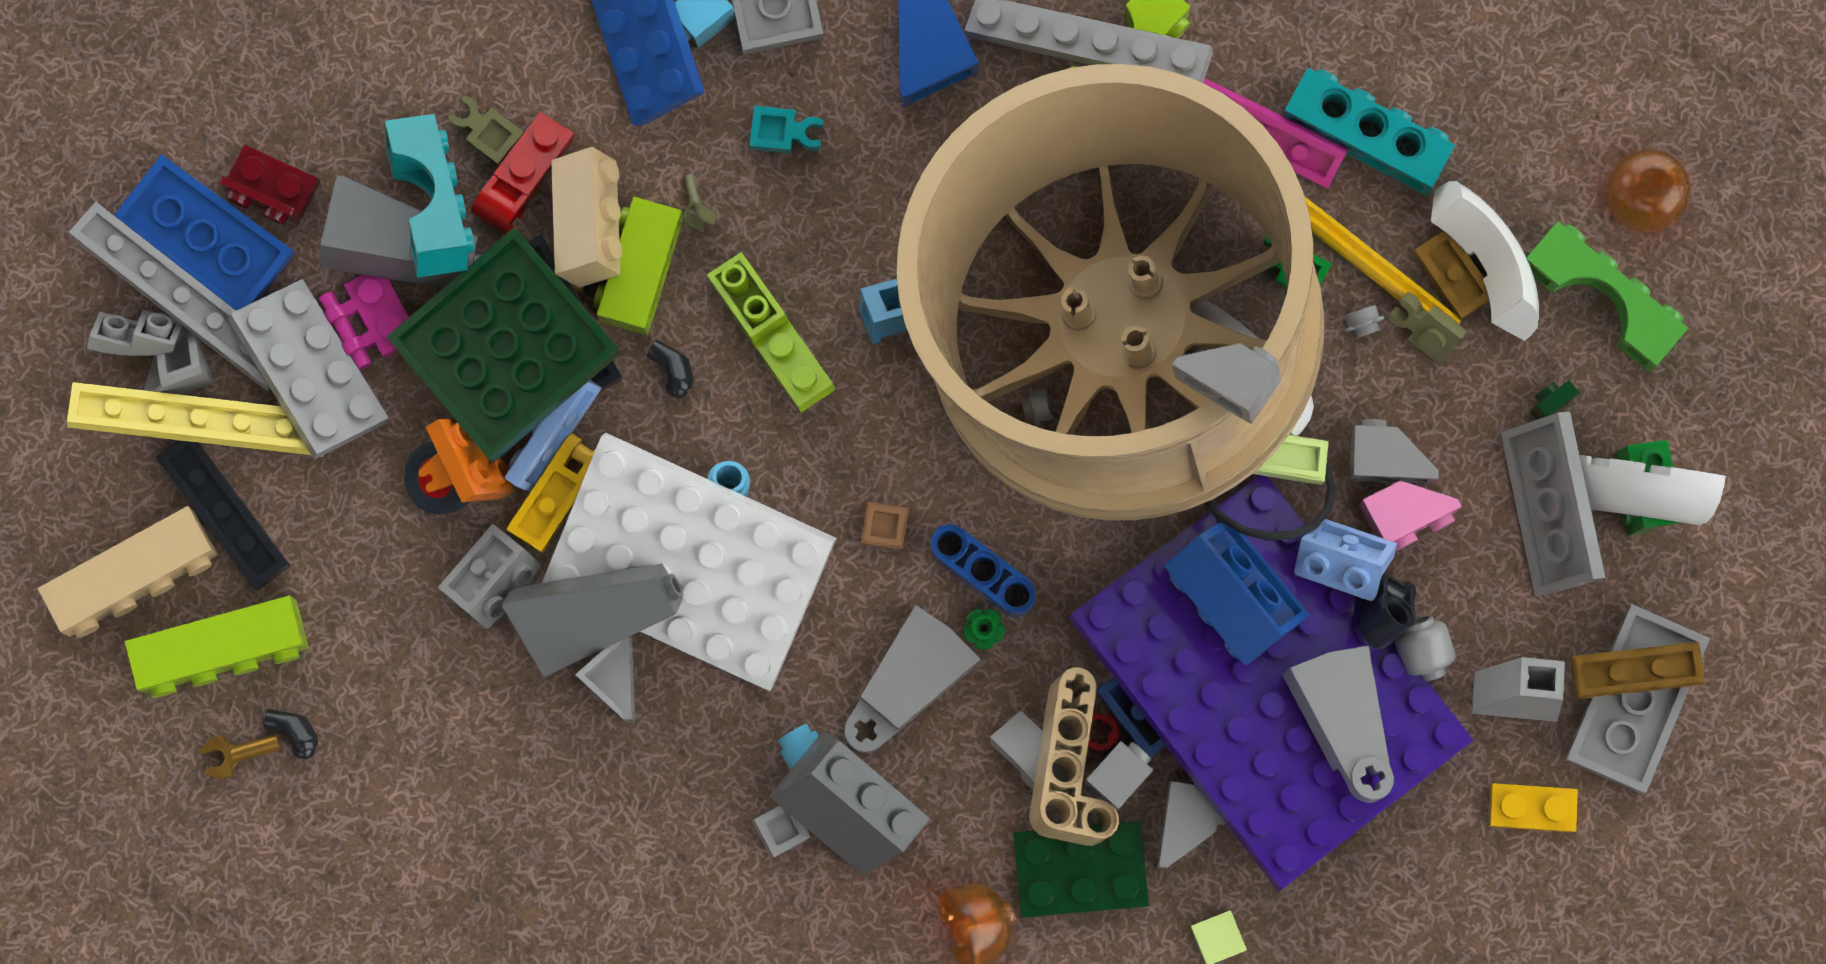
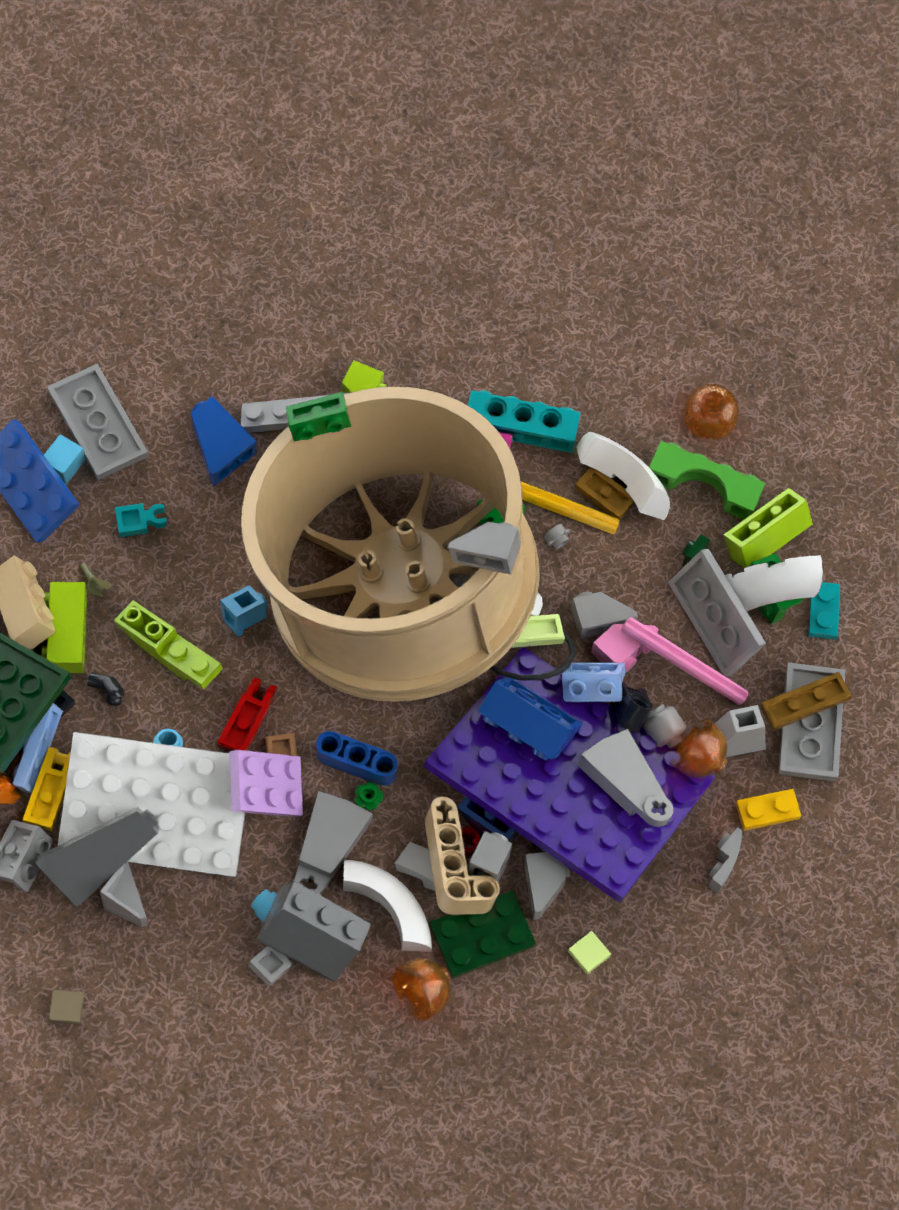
camera: 25 degrees left, 15 degrees down
(496, 806) = (66, 1007): none -> dark tan tile
(844, 580) = (266, 783): none -> lavender plate
(849, 469) = (246, 718): none -> red hinge
(977, 783) = (397, 900): none -> white brick
(1056, 92) = (318, 416): none -> green bracket
(1432, 331) = (604, 530): olive plate -> none
(1456, 856) = (728, 853): none -> light grey slope
(1462, 706) = (702, 751): none -> clear orange cylinder
(1484, 563) = (685, 661): none -> bright pink axle
(1670, 398) = (768, 528): none -> lime brick
(1711, 542) = (824, 612): none -> teal plate

